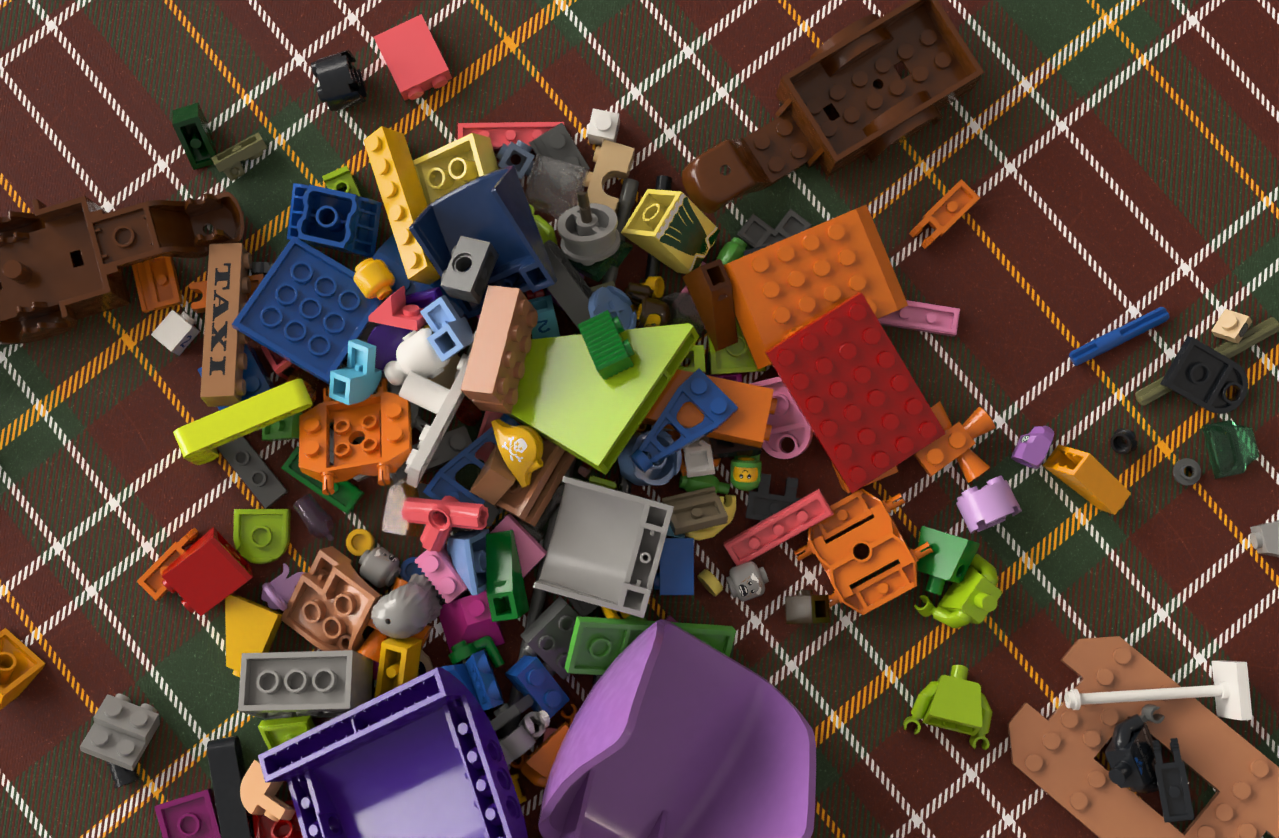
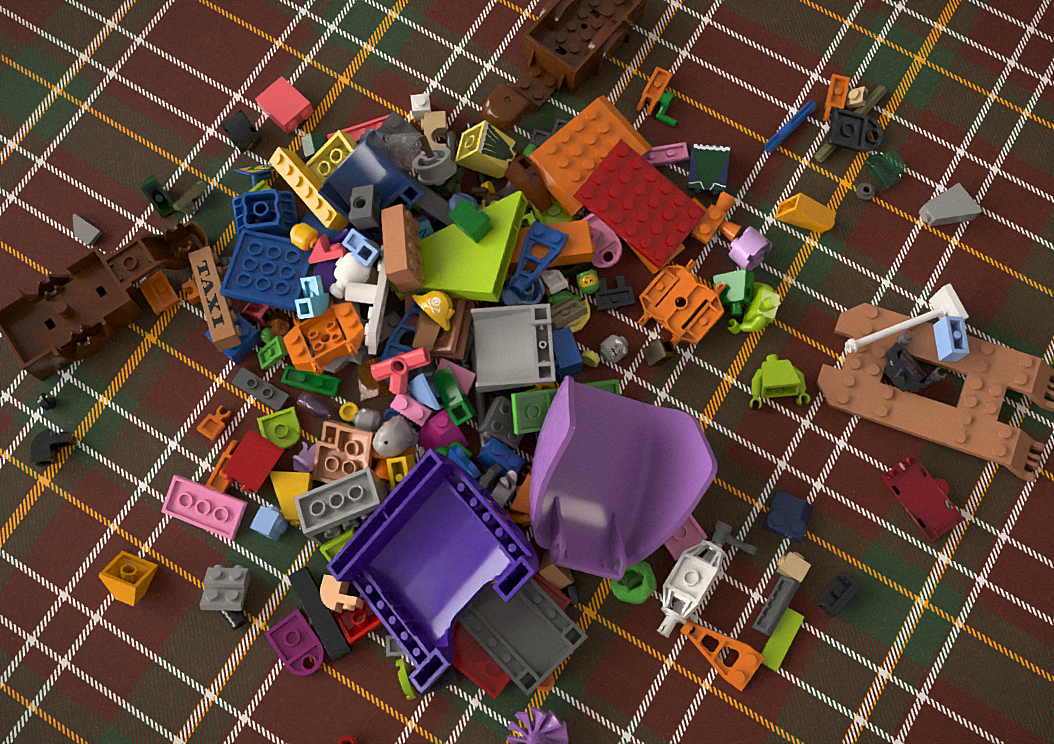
camera: 20 degrees left, 10 degrees down
(82, 153) = (84, 231): none -> light grey tile
(127, 608) = (204, 507): none -> bright pink tile
(172, 498) = (213, 425): none -> orange plate
(176, 331) = (182, 319): white brick -> none
(202, 437) = (242, 352): neon yellow beam -> none
(204, 665) = (269, 522): none -> light blue brick
(341, 148) = (257, 172): none -> blue shield
(433, 133) = (312, 144): none -> piece
(468, 413) = (394, 304): clear red tile -> none
(778, 528) = (622, 308): coral tile -> none
(955, 236) = (666, 100): none -> green plate
(976, 361) = (708, 168): none -> slope
(1033, 447) = (764, 208): medium lavender rock -> none
(1118, 443) = (819, 190): black plate -> none
(1173, 784) = (936, 376): black hinge -> none
(1203, 311) = (836, 94): none -> orange hinge
(1215, 741) = (951, 338): none -> light blue brick

